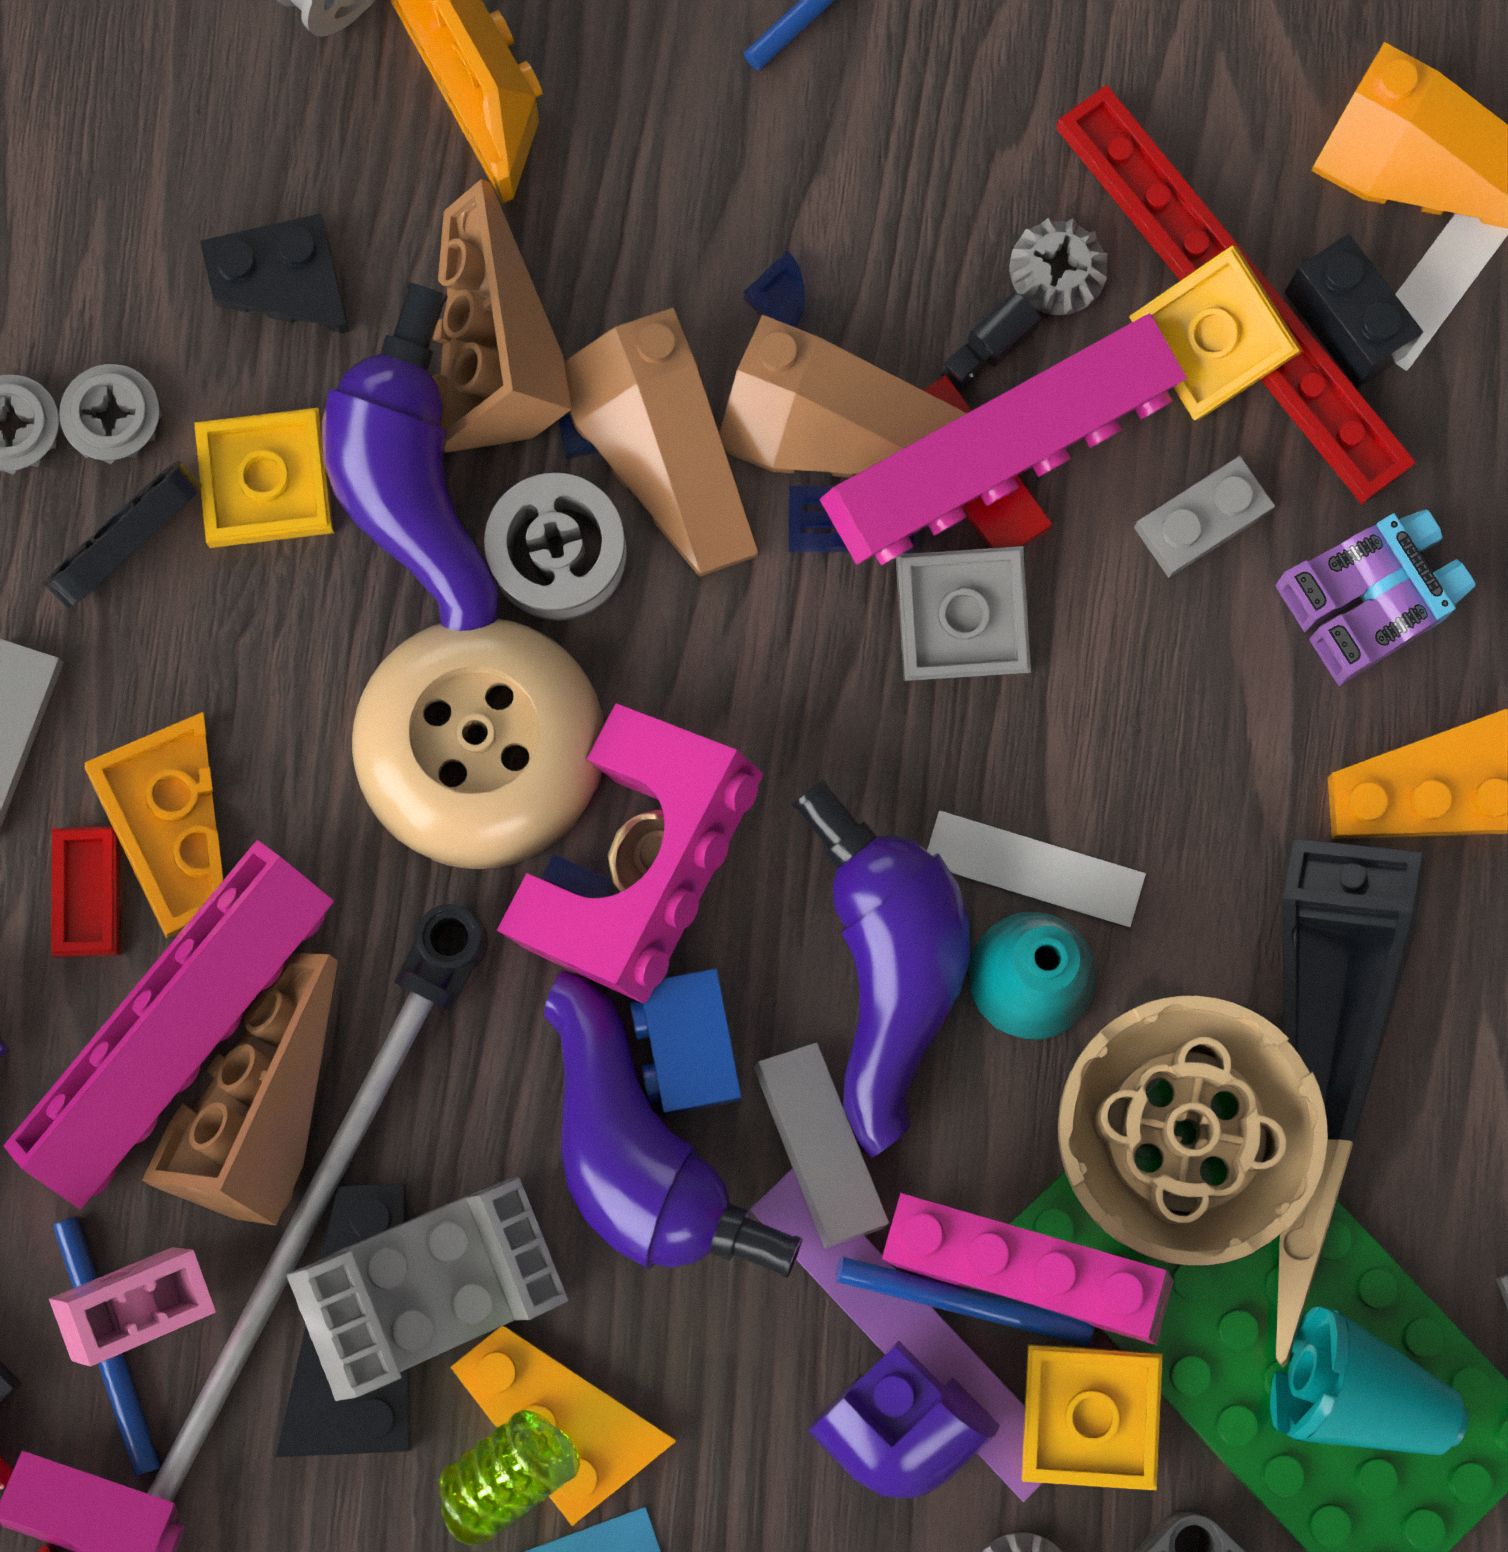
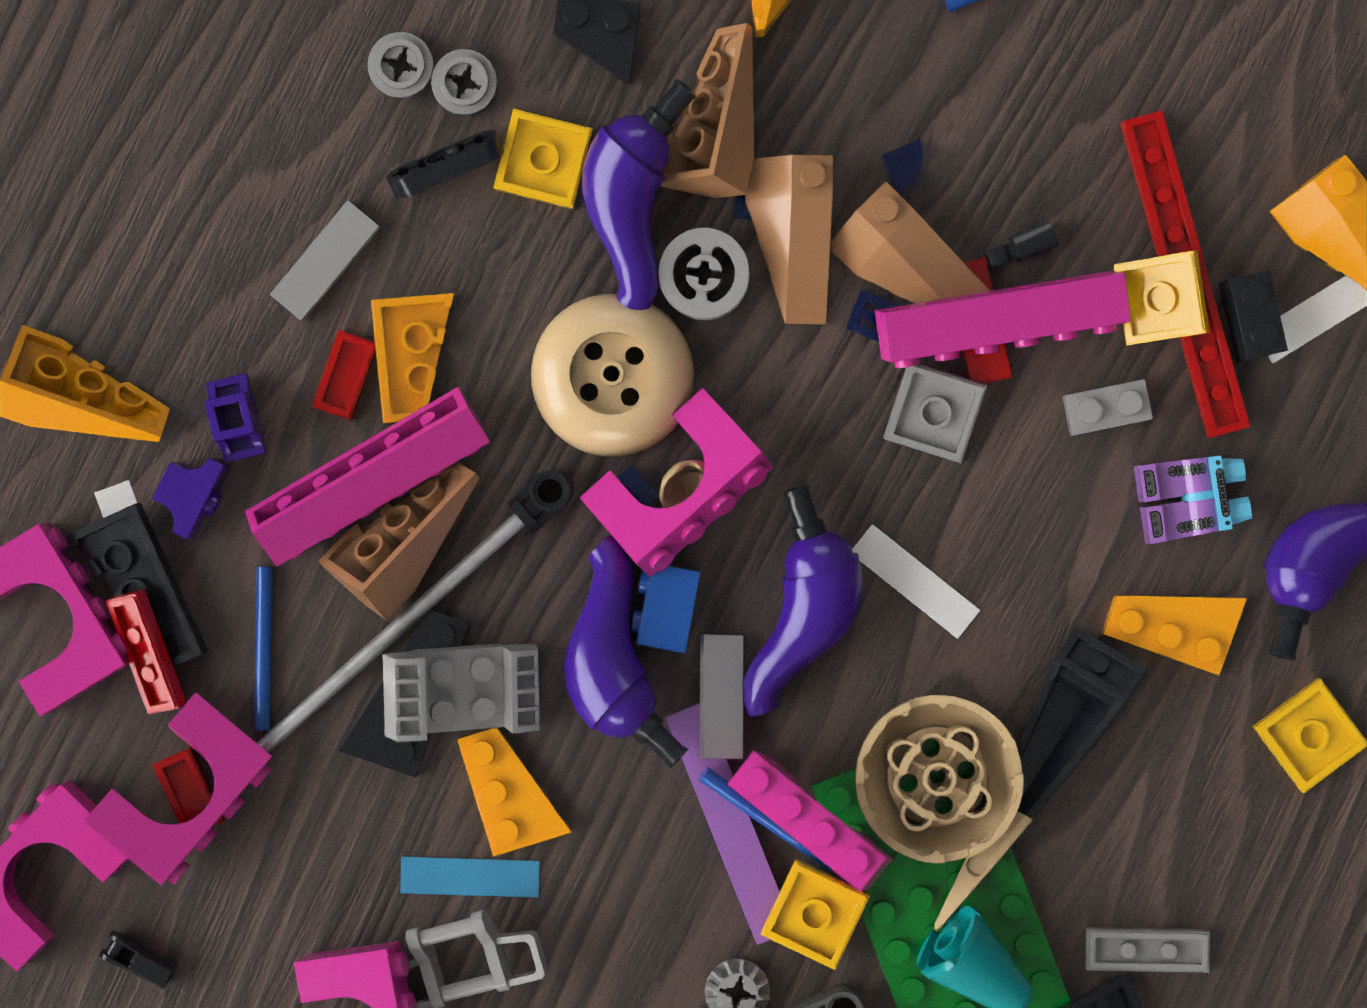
camera: 30 degrees right, 10 degrees up
(132, 1306) = (287, 635): bright pink brick -> none
(505, 1477) = (465, 816): clear neon green piece -> none
(903, 1427) = (703, 878): dark purple brick -> none
(1019, 994) = (872, 634): teal cone -> none
(1075, 288) = (1065, 215): light grey gear -> none

